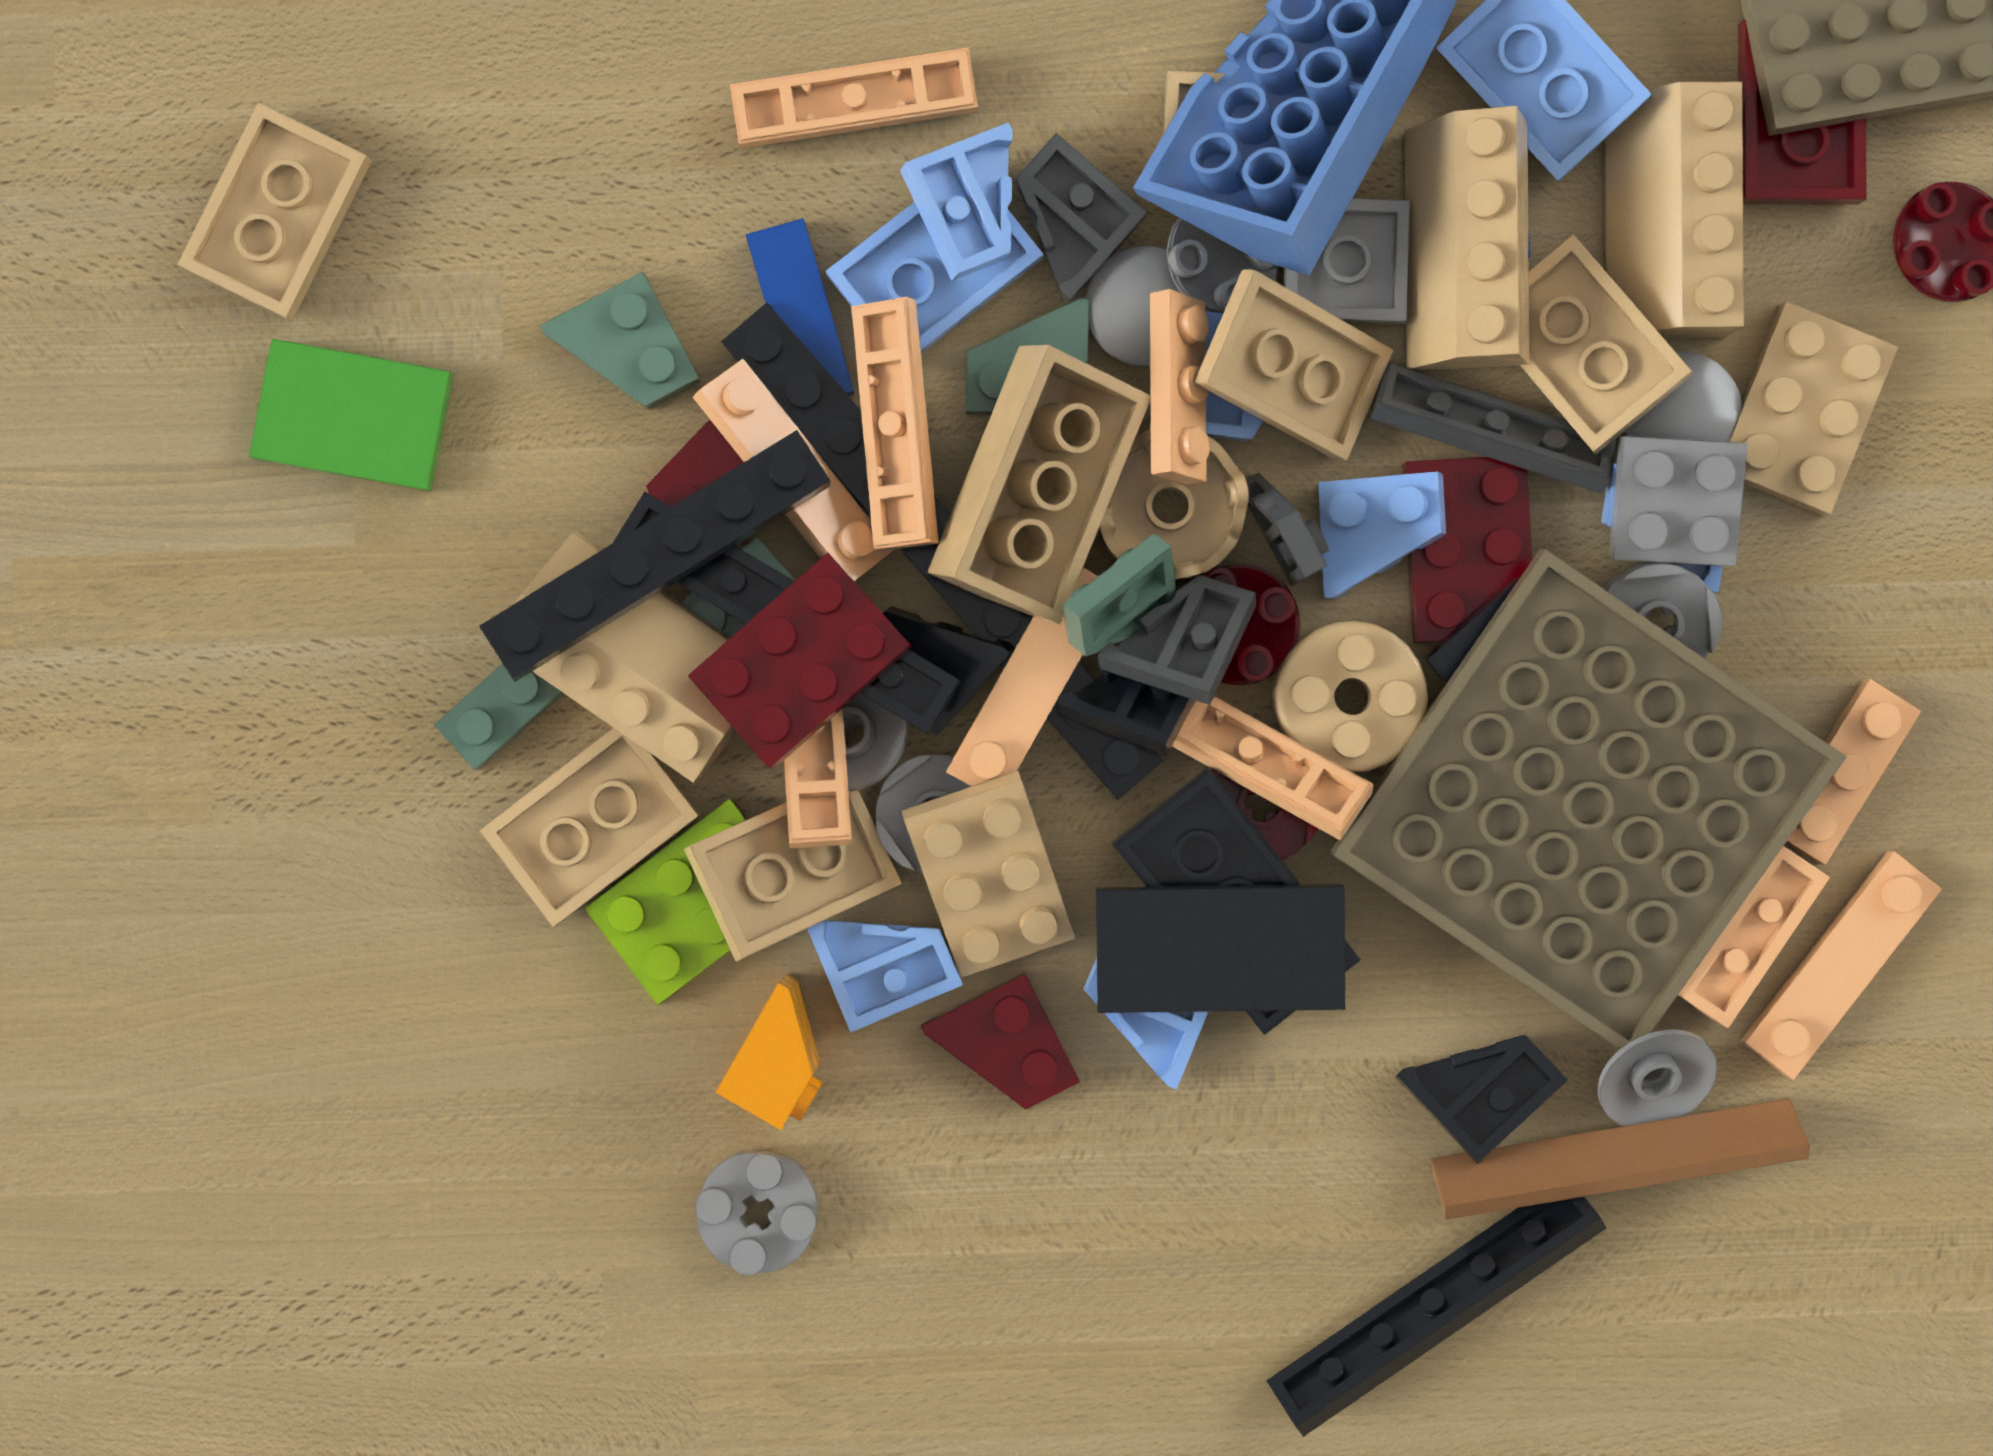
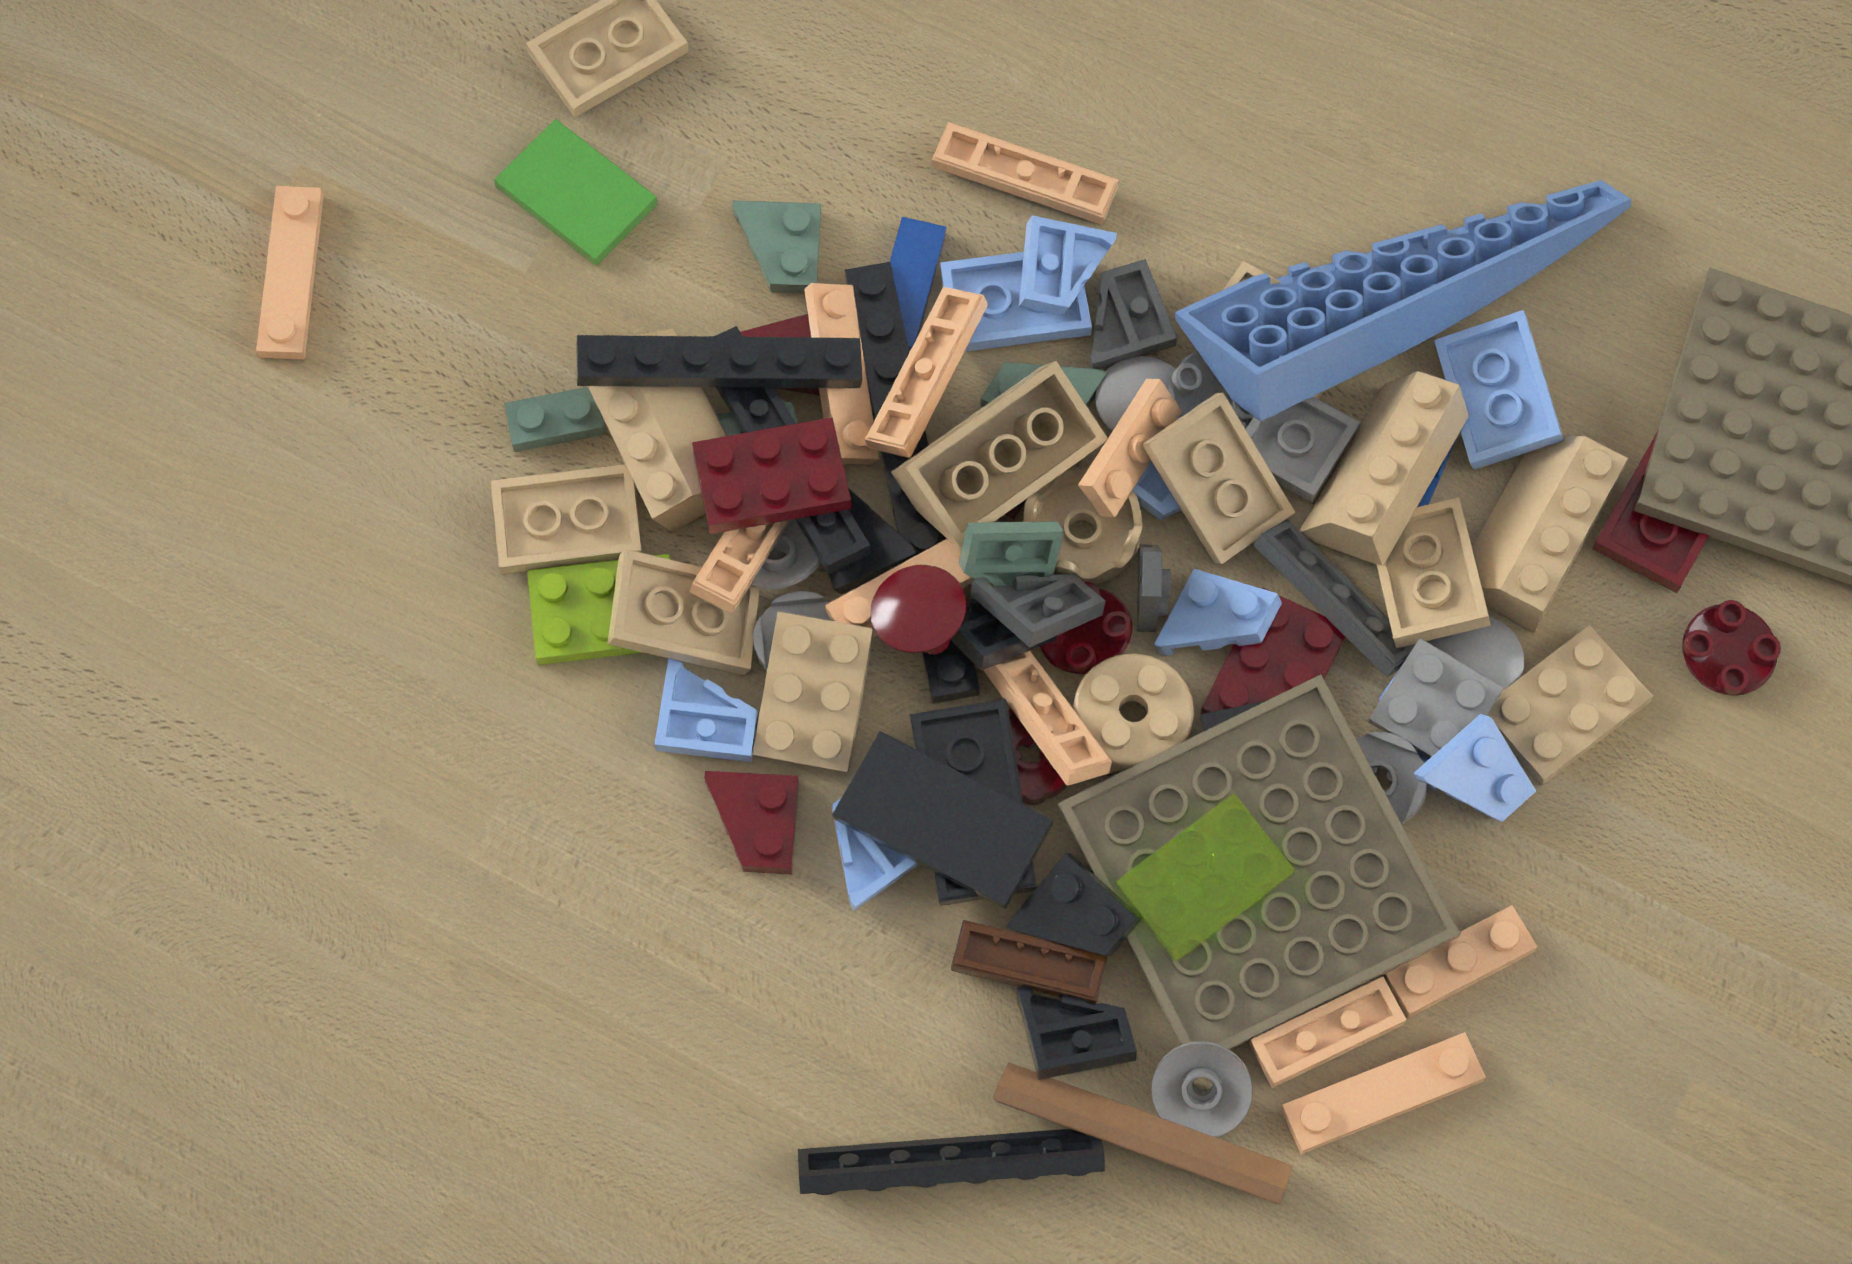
camera: 30 degrees right, 20 degrees down
(88, 702) = (290, 273): none -> light nougat plate
(749, 1246) = (537, 850): light grey plate -> none
(776, 1061) = (594, 723): light orange slope -> none
(1058, 726) = (918, 609): none -> dark red dish
(1394, 1039) = (1028, 962): none -> reddish brown plate
(1418, 961) = (1076, 910): none -> black wing
(1541, 852) = (1205, 877): none -> clear neon green tile
(1763, 553) = (1479, 771): none -> light blue wing

